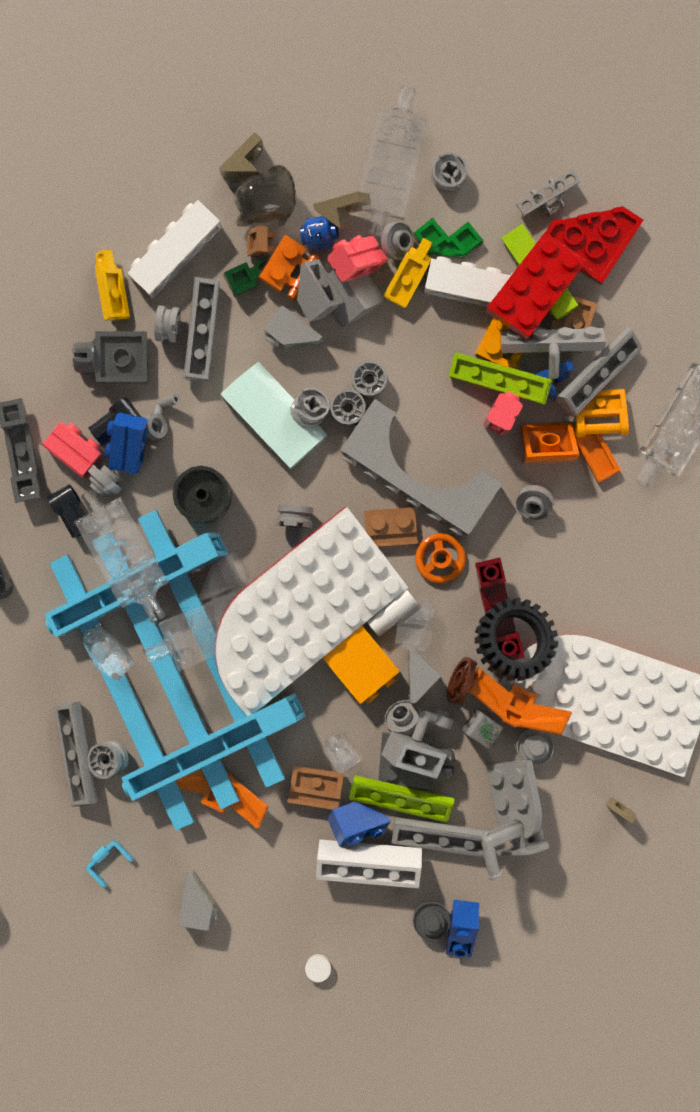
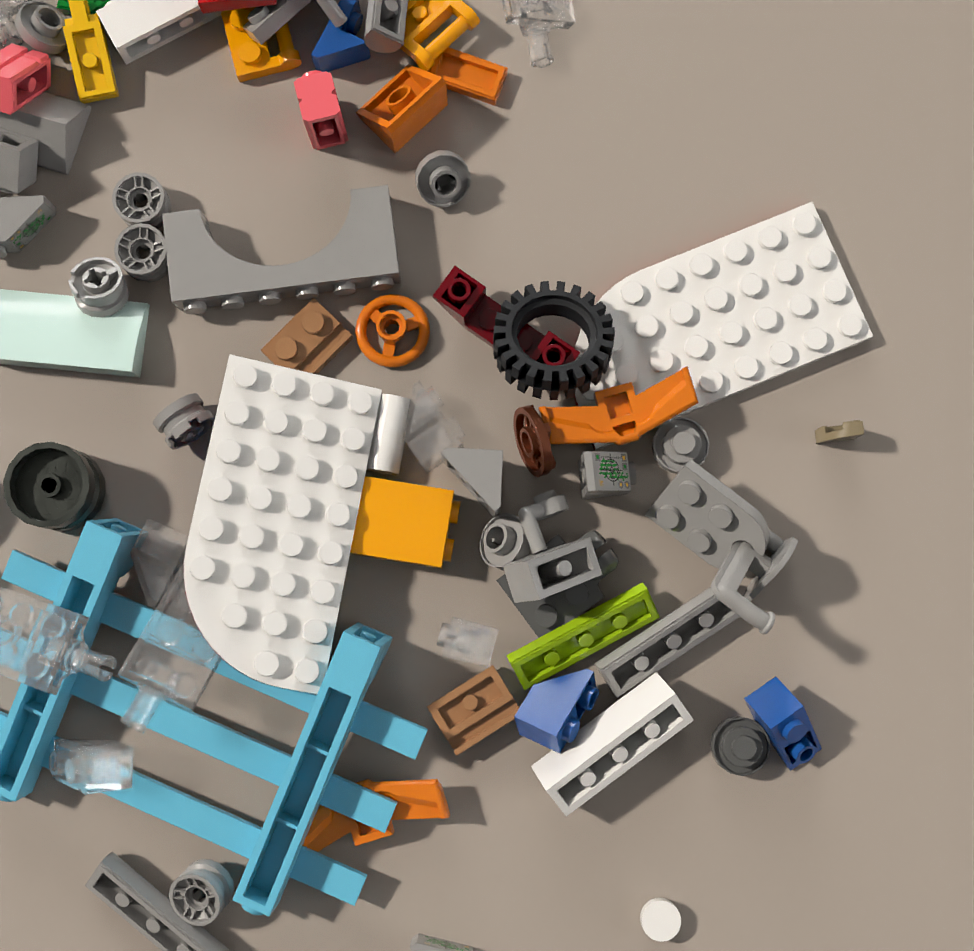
camera: 45 degrees left, 5 degrees down
(500, 378) = (275, 79): lime tile -> none

